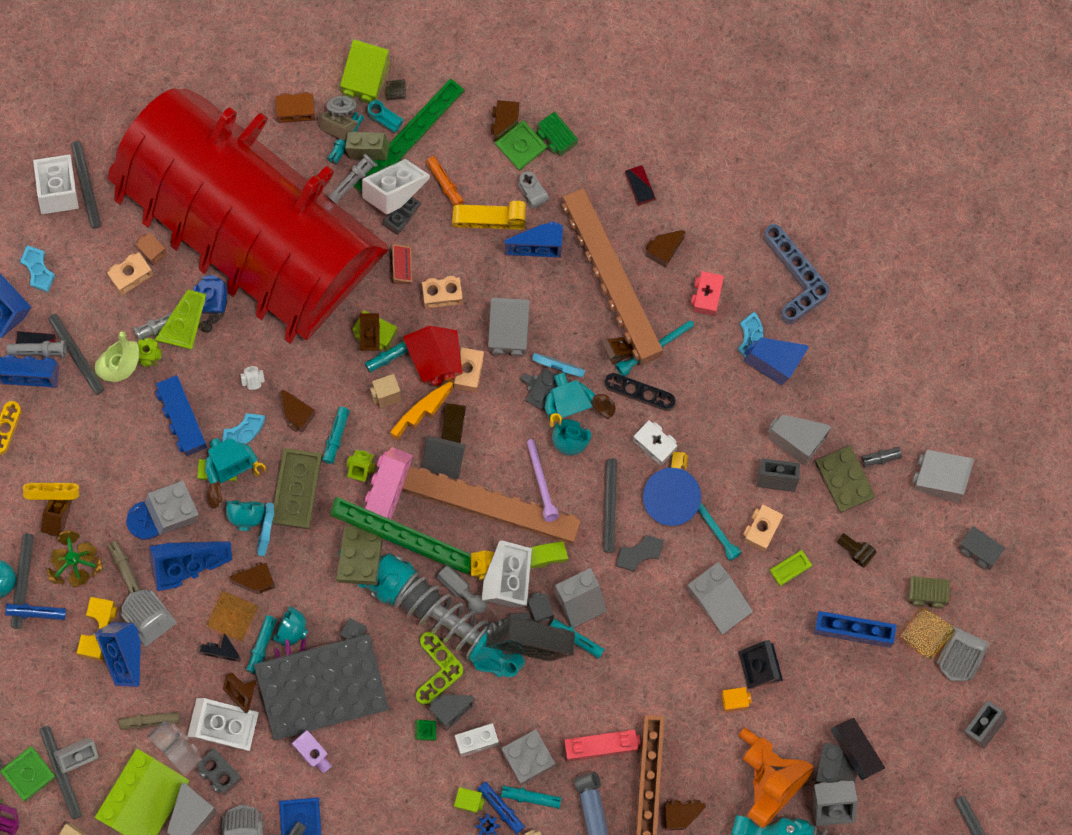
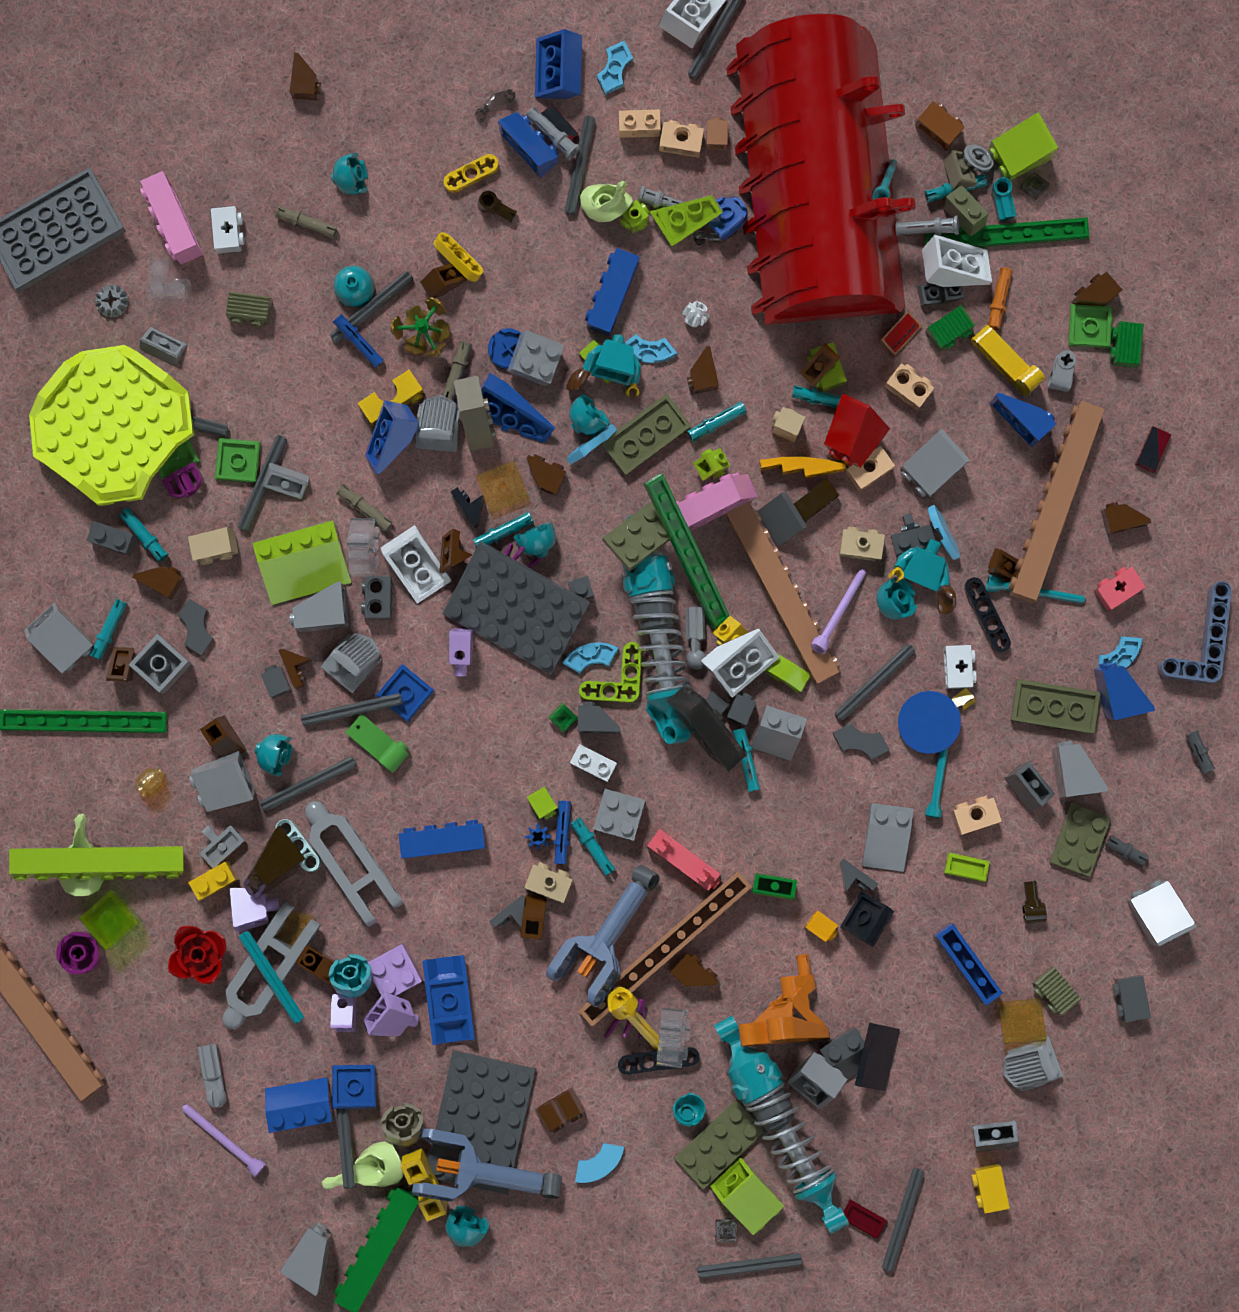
camera: 50 degrees right, 10 degrees up
(45, 433) = (497, 207): none -> dark brown pin
(91, 289) = (639, 123): none -> light nougat brick
(166, 582) = (473, 413): none -> dark tan wedge
(301, 179) = (883, 190): none -> teal piece
(402, 670) = (590, 654): none -> medium azure tile
(431, 230) = (950, 328): none -> green brick
(512, 424) = (861, 544): none -> tan brick
(678, 703) = (774, 886): none -> green brick
(719, 645) = (850, 873): none -> dark grey slope
(742, 408) = (1055, 706): none -> olive plate
(864, 348) = (1200, 752): none -> dark grey pin
(1017, 762) = (991, 1188): none -> yellow brick

